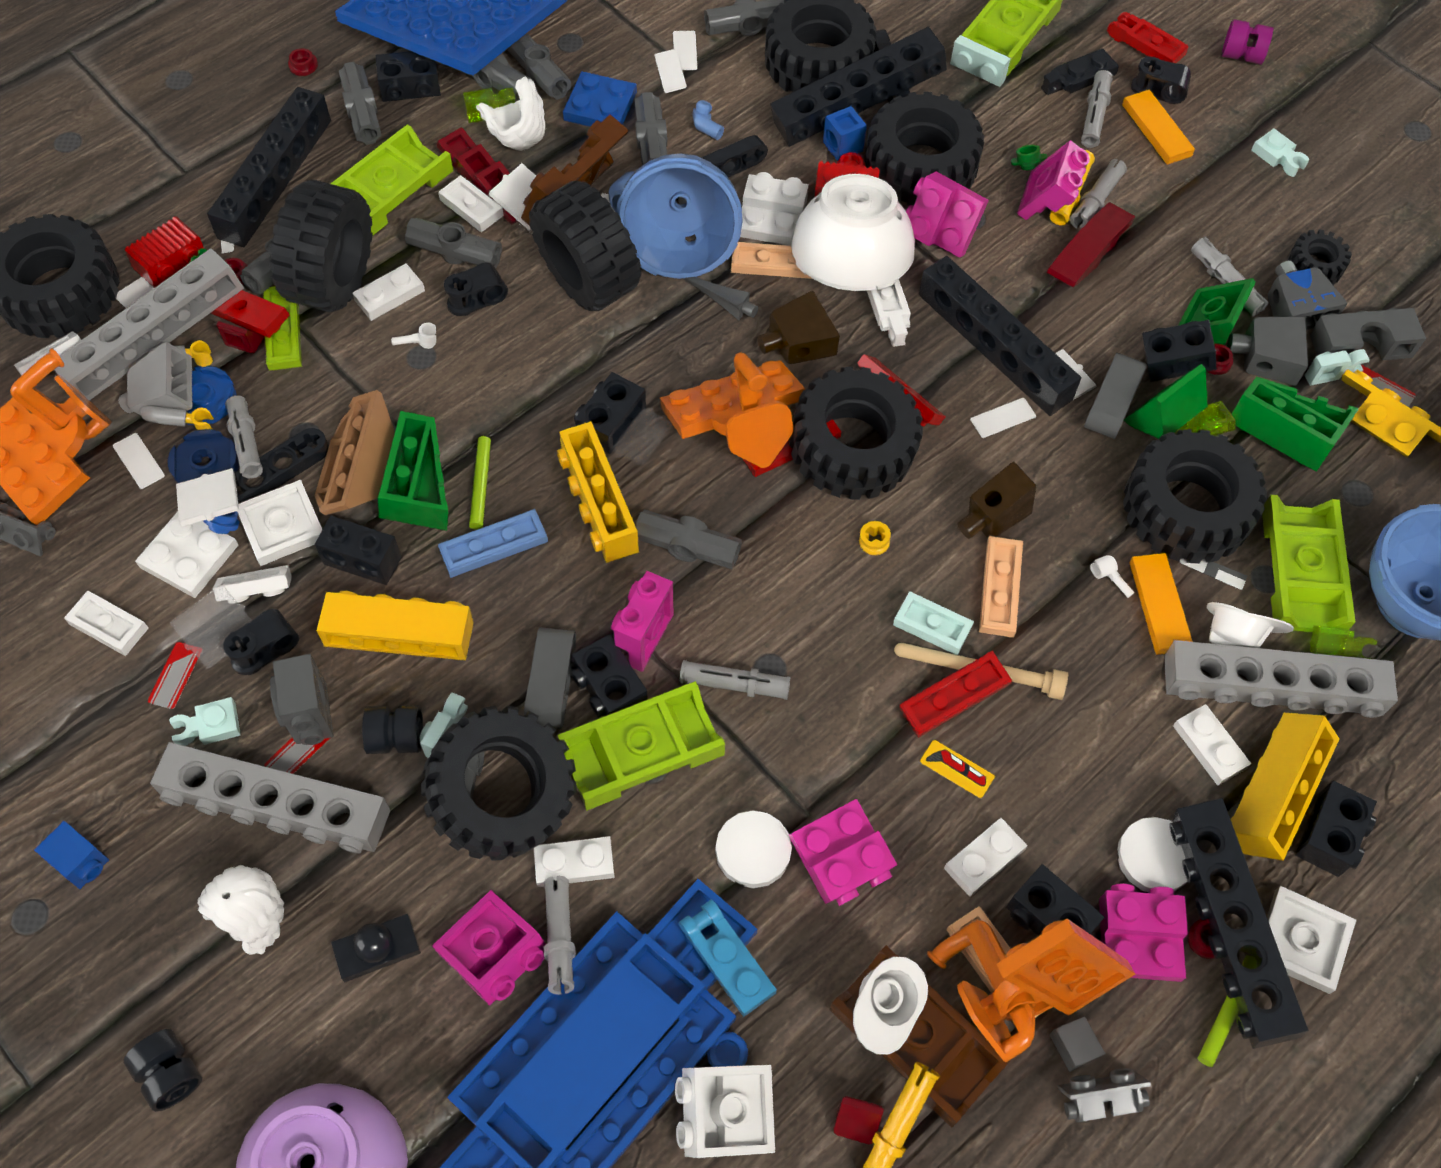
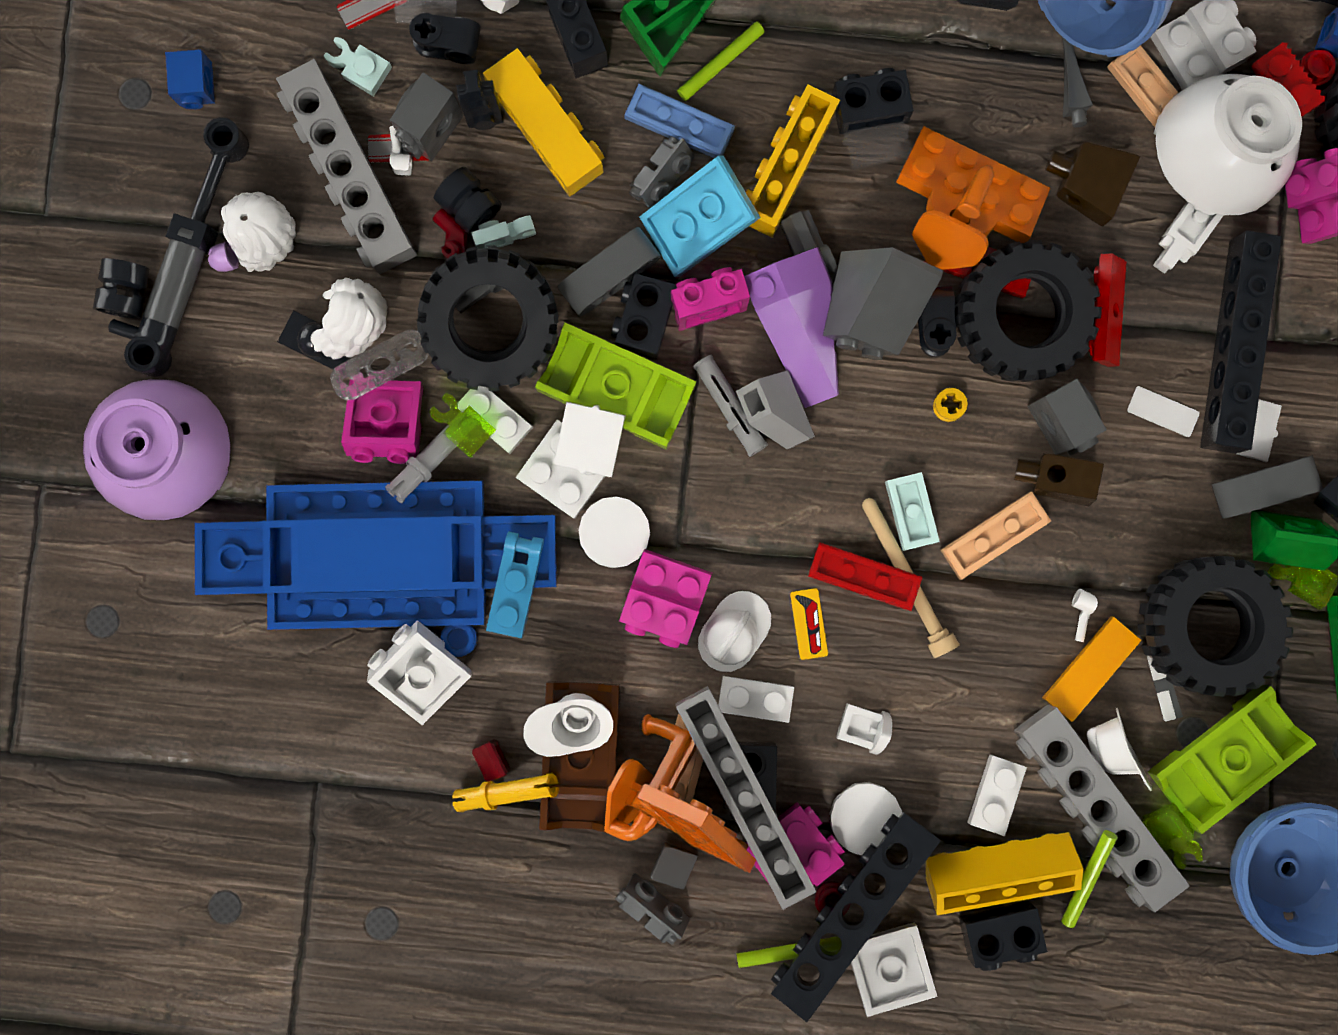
camera: 50 degrees right, 25 degrees up
(192, 980) = (182, 261): none -> black piece
(229, 962) = (223, 257): none -> lavender hinge
(311, 757) = (401, 163): none -> white hand
(333, 651) = (479, 102): none -> black hinge
(393, 889) = (353, 319): none -> white hair
(405, 764) = (455, 236): none -> dark red arm
(450, 924) = (377, 378): none -> clear beam
(515, 568) = (672, 160): none -> dark grey hinge
(564, 883) = (465, 429): none -> clear neon green plate
(576, 578) = (699, 216): none -> medium azure tile
(664, 795) = (589, 439): none -> white piece
(668, 843) = (558, 483): none -> white plate
(721, 576) = (793, 308): none -> medium lavender wedge
(756, 510) = (878, 300): none -> dark grey slope
(770, 648) = (776, 410): none -> light grey slope
(802, 494) = (940, 318): none -> black piece
(915, 828) = (734, 631): none -> white piece
(957, 466) = (1068, 418): none -> dark grey brick
(1034, 903) = (745, 798): none -> light grey brick
(1080, 793) = (865, 728): none -> white tile
(1344, 745) = (1089, 878): none -> lime bar

